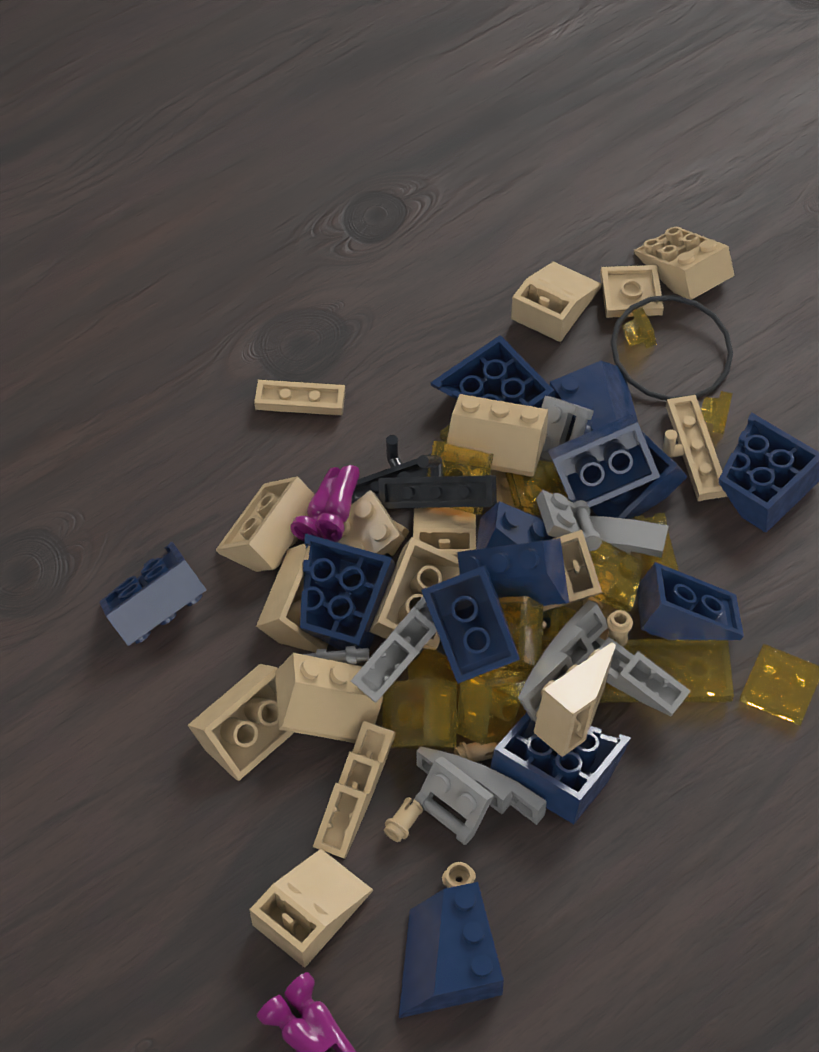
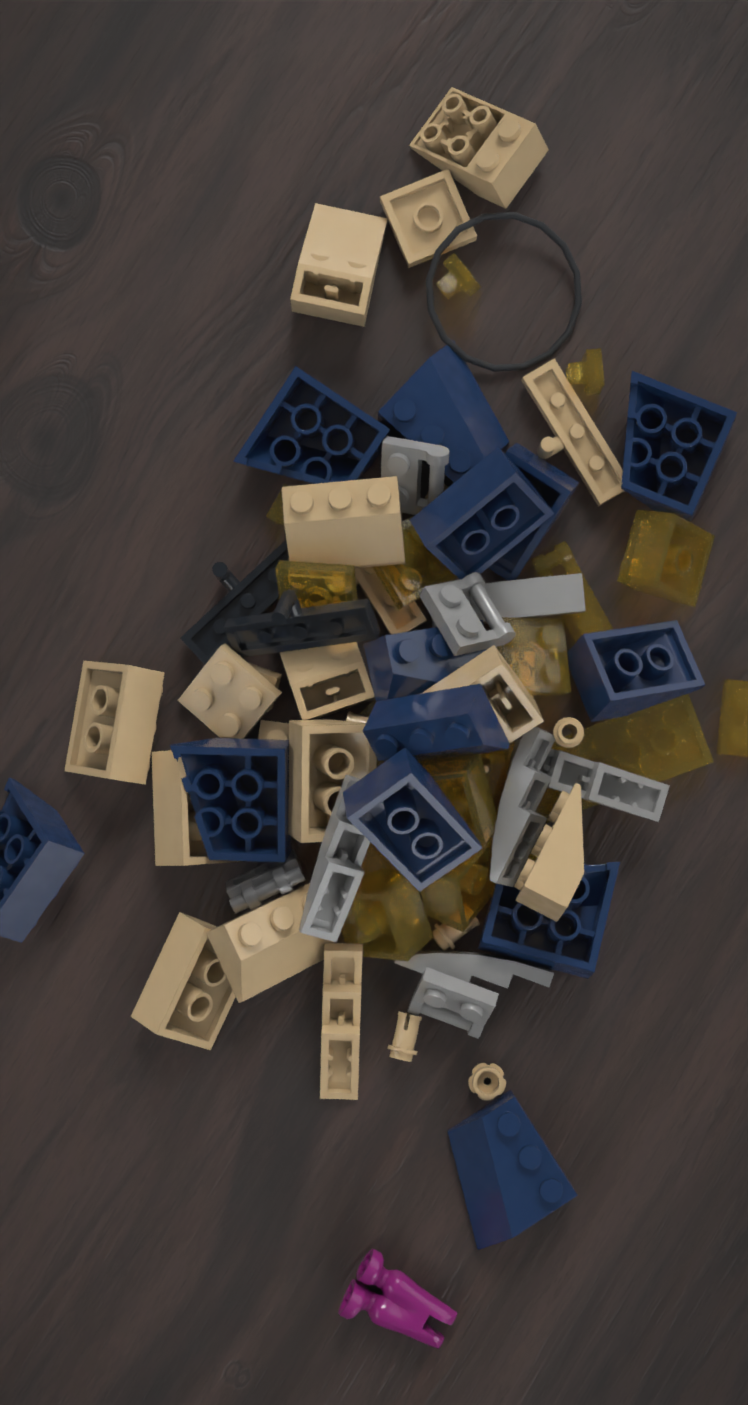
camera: 25 degrees left, 30 degrees up
(300, 397) = (79, 526): tan plate -> none
(308, 906) = (346, 1173): tan slope -> none
(329, 506) = (180, 682): magenta piece -> none
(740, 545) = (666, 557): none -> clear yellow slope

